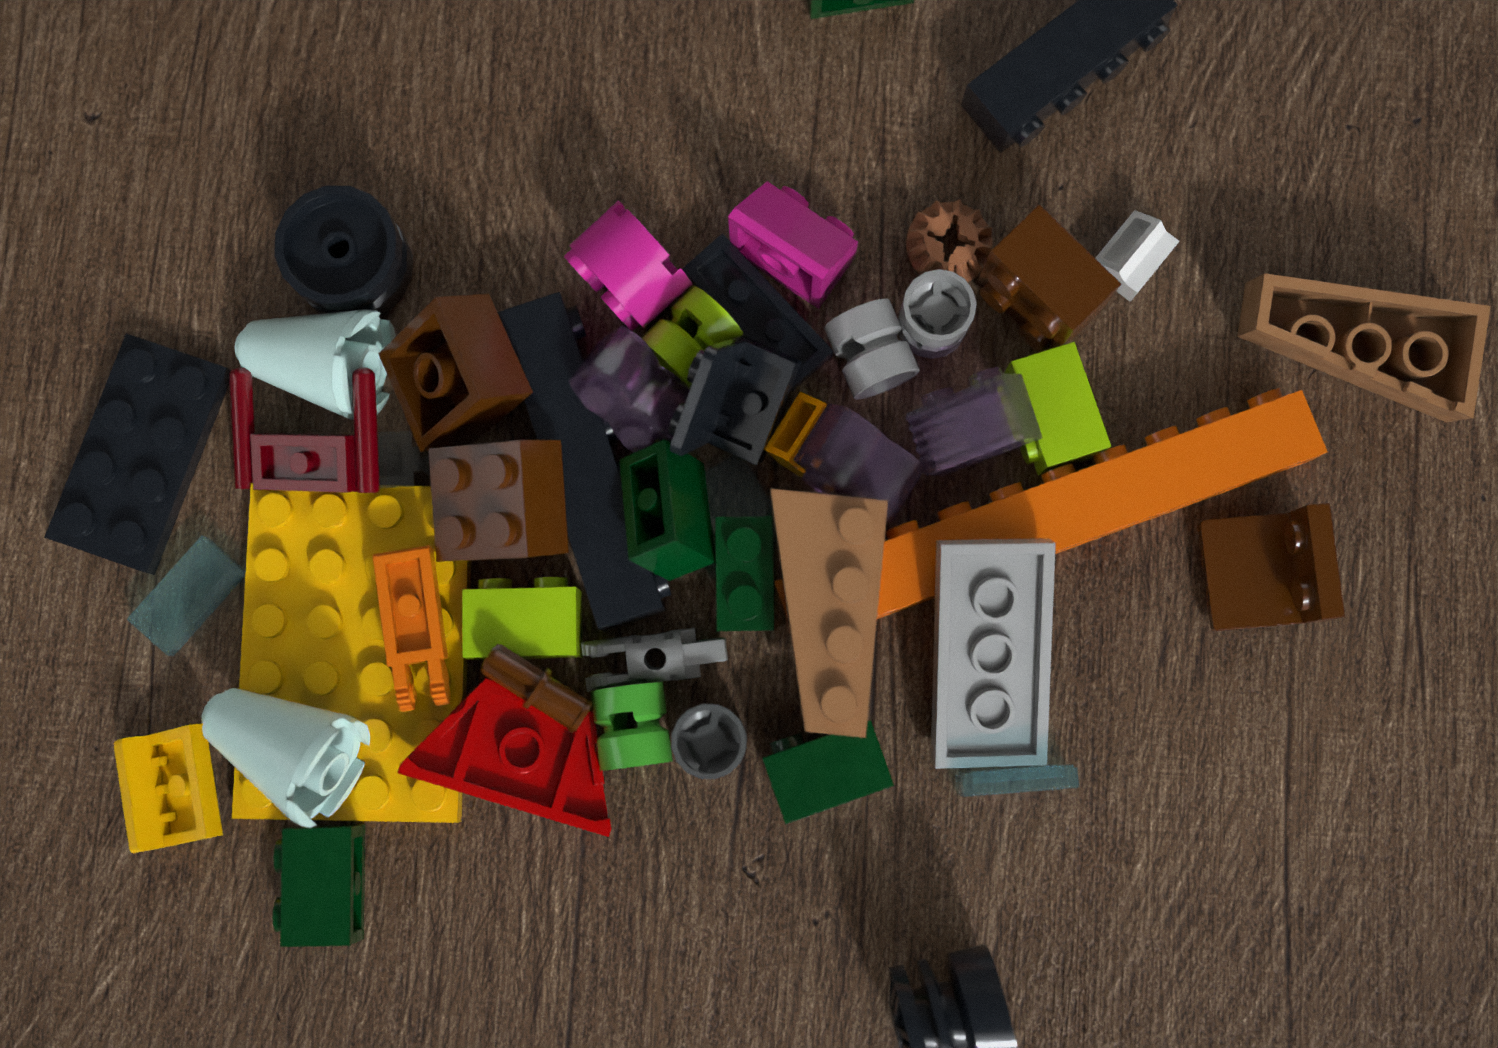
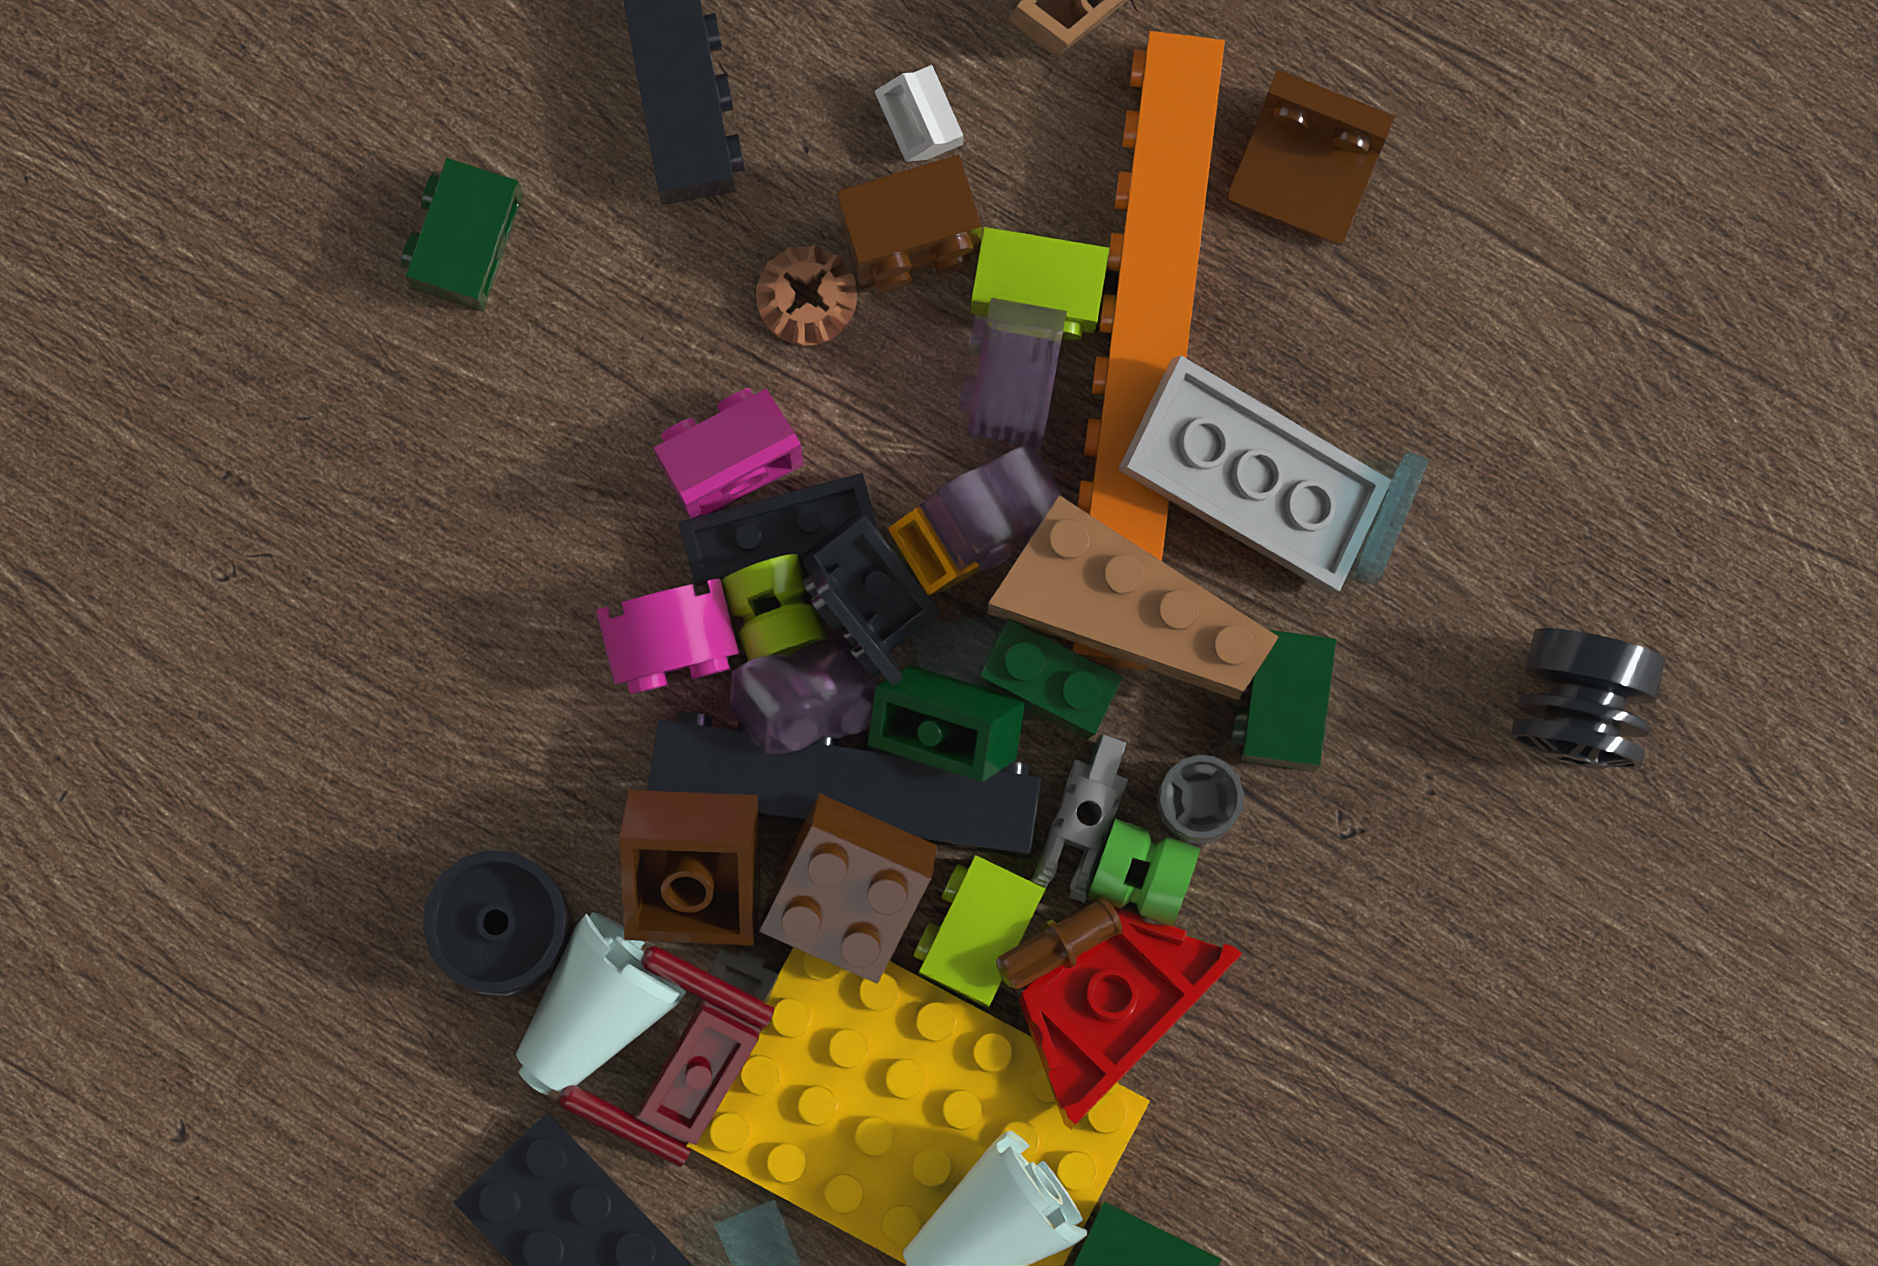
camera: 70 degrees left, 0 degrees up
(412, 621) = (924, 1037): orange hinge -> none
(871, 347) = (881, 432): light grey wheel -> none
(936, 313) = (880, 349): light grey wheel -> none

